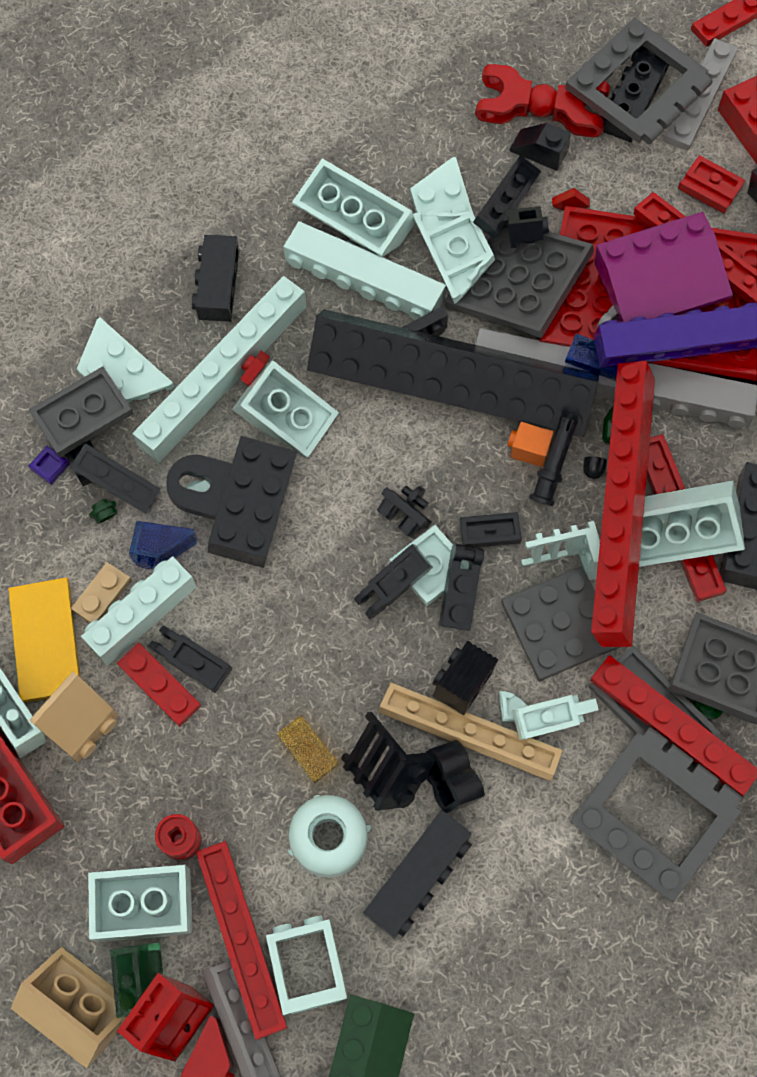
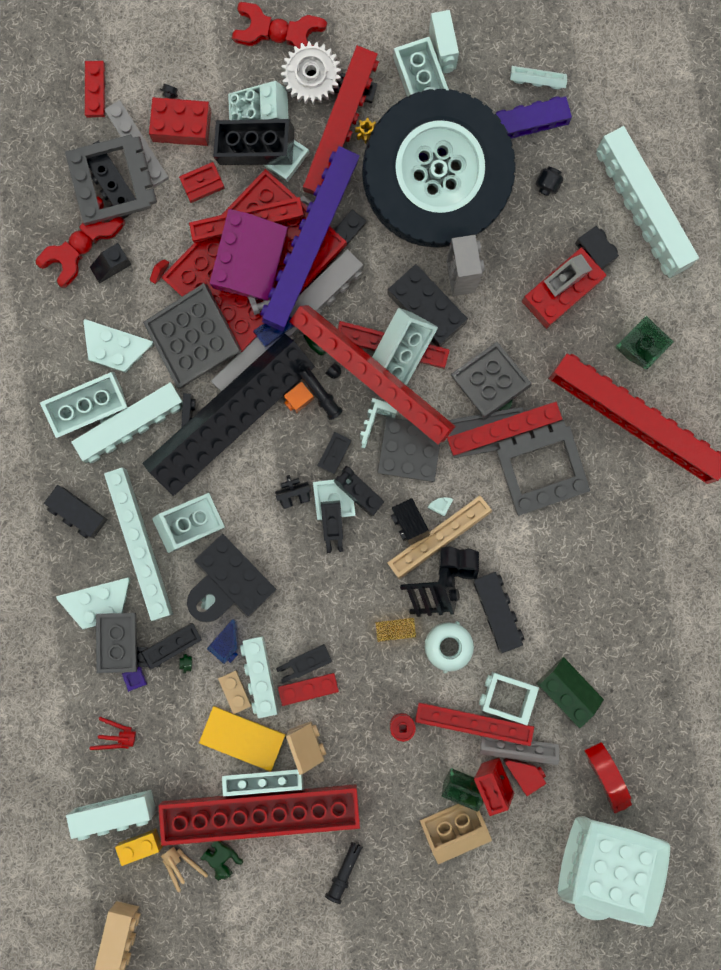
camera: 60 degrees left, 15 degrees up
(140, 903) = (425, 767): light aqua brick -> none
(253, 366) = (150, 525): red plate -> none
(456, 249) = (150, 360): light aqua wing -> none
(506, 196) = (135, 308): black plate -> none
(526, 225) = (165, 311): black brick -> none
(551, 715) = (459, 488): light aqua hinge -> none

